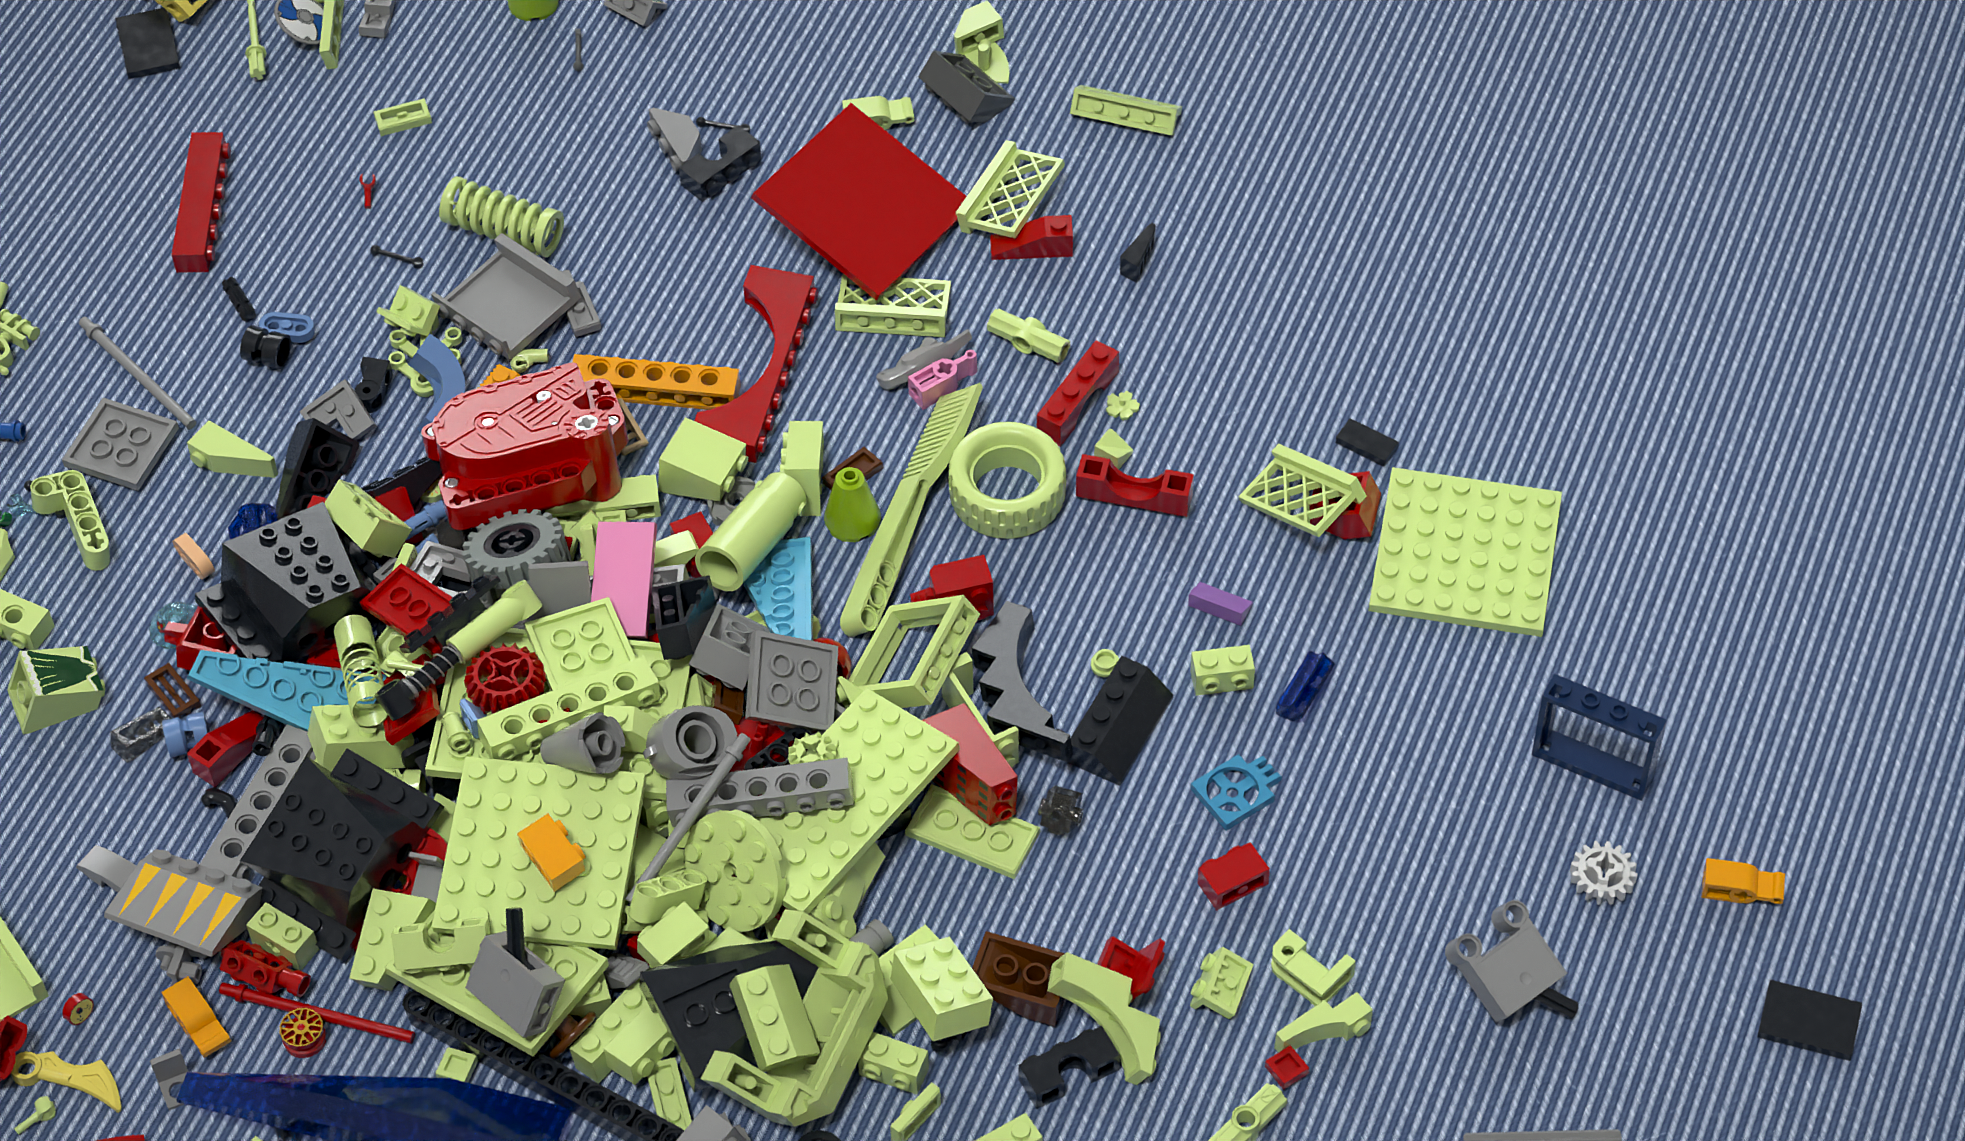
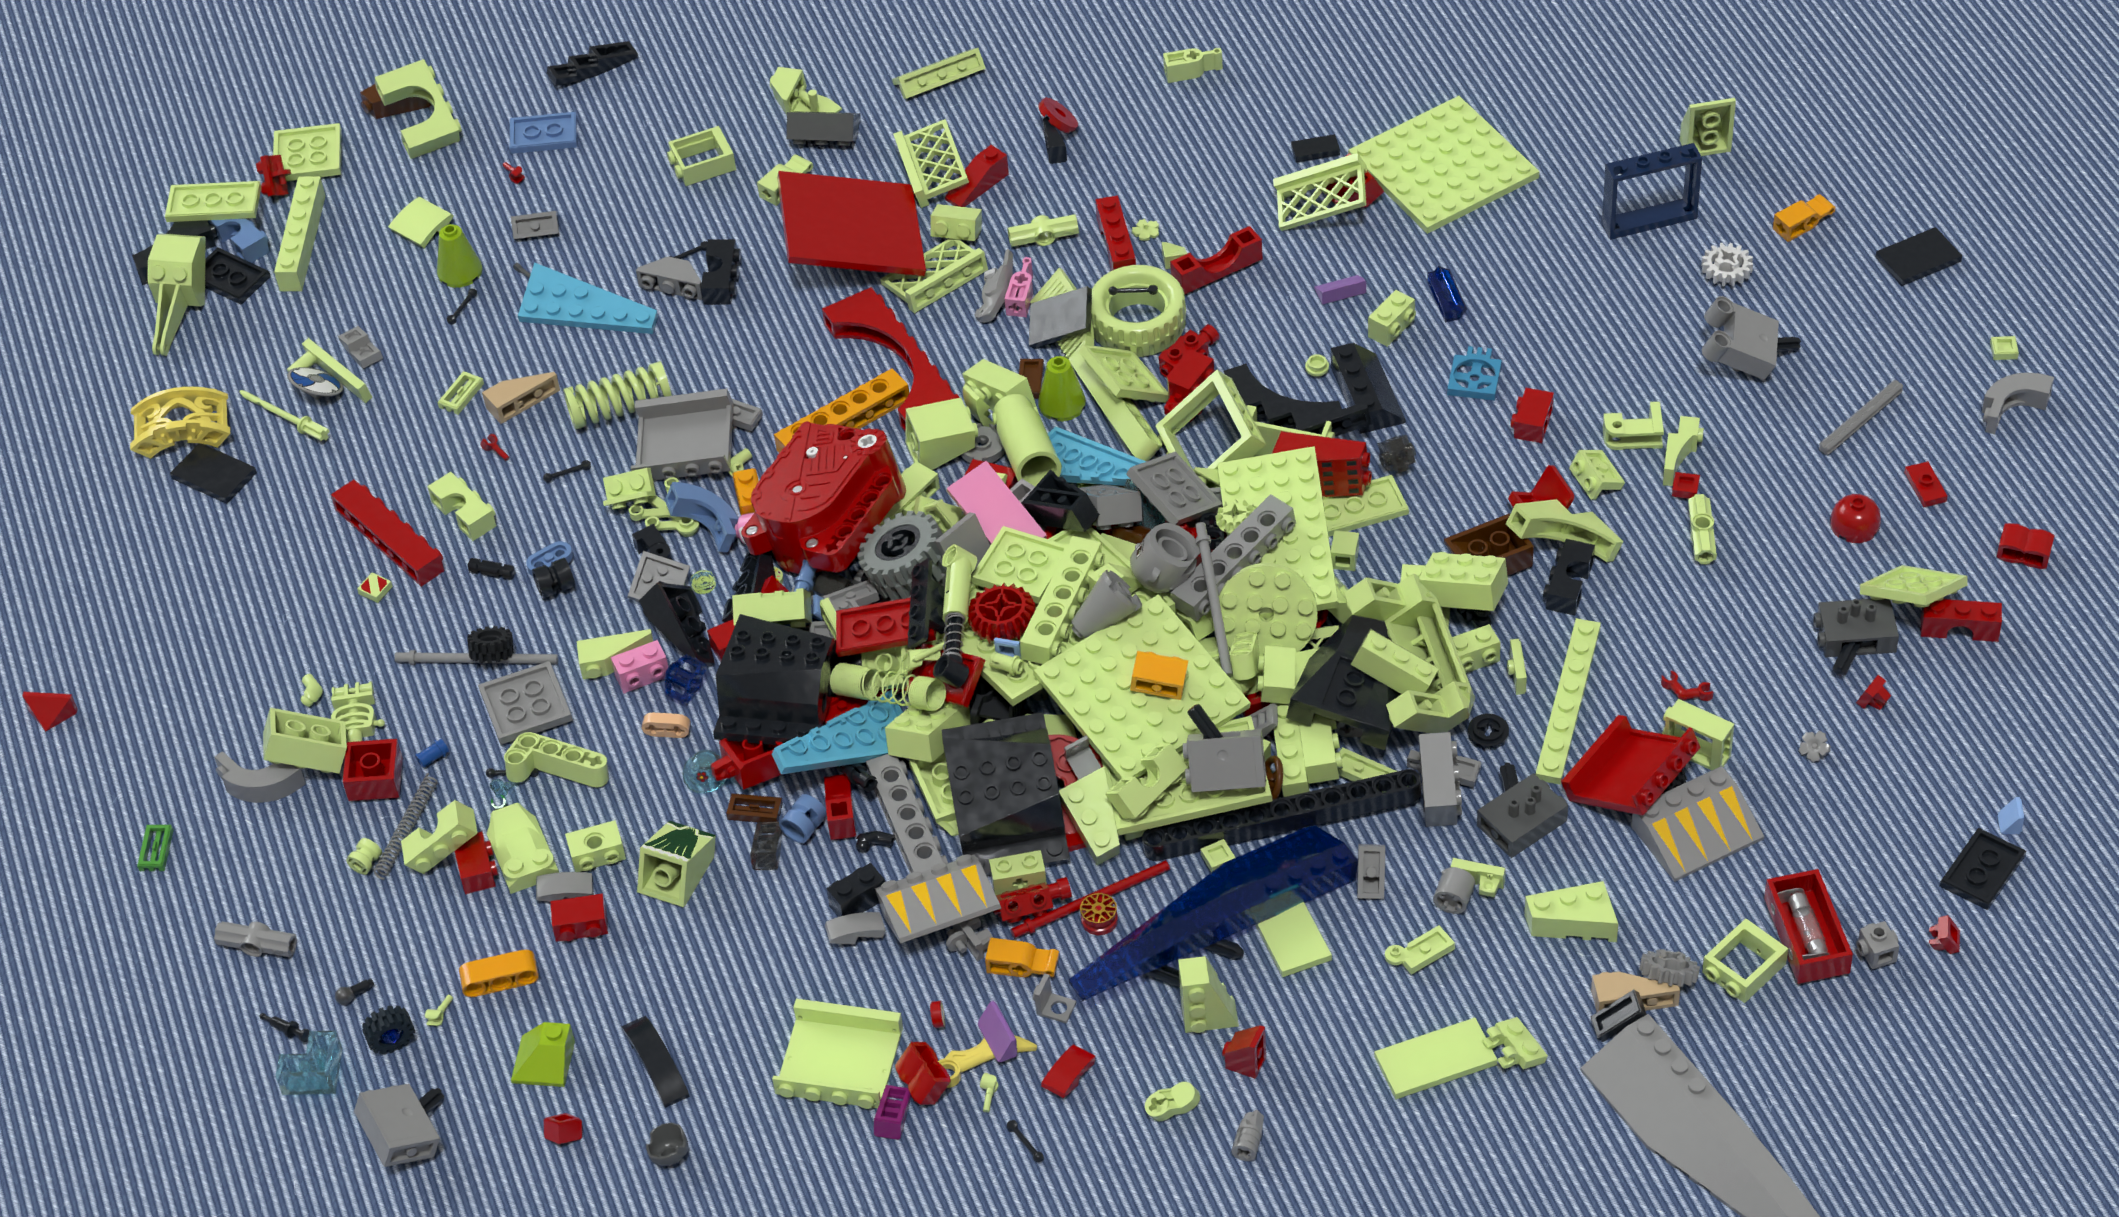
camera: 40 degrees left, 5 degrees down
(97, 1070) = (997, 1033): none -> medium lavender slope
(139, 244) = (374, 587): none -> yellowish green tile
(139, 836) = (855, 892): none -> black brick
(150, 368) = (490, 644): none -> black tyre
(233, 483) = (640, 666): none -> bright pink brick
(278, 240) = (473, 516): none -> yellowish green arch
(377, 447) = (703, 582): none -> clear light blue tile
(434, 154) = (519, 394): none -> tan slope
(475, 42) = (451, 319): none -> black hinge
(578, 102) = (566, 301): none -> medium azure wing
(760, 459) = (978, 407): none -> yellowish green slope
(839, 23) = (696, 144): none -> yellowish green window
(907, 866) = (1345, 550): none -> yellowish green brick
(915, 530) = (1124, 373): none -> yellowish green plate
(929, 433) = (1060, 317): none -> tile
(961, 269) = (956, 222): none -> yellowish green brick
(1012, 555) = (1170, 357): none -> red brick
(1026, 469) = (1153, 289): none -> black hinge
(1180, 228) = (1059, 115): none -> red tile
(1351, 268) = (1190, 63): none -> yellowish green piece
(1745, 717) = (1709, 126): none -> yellowish green slope

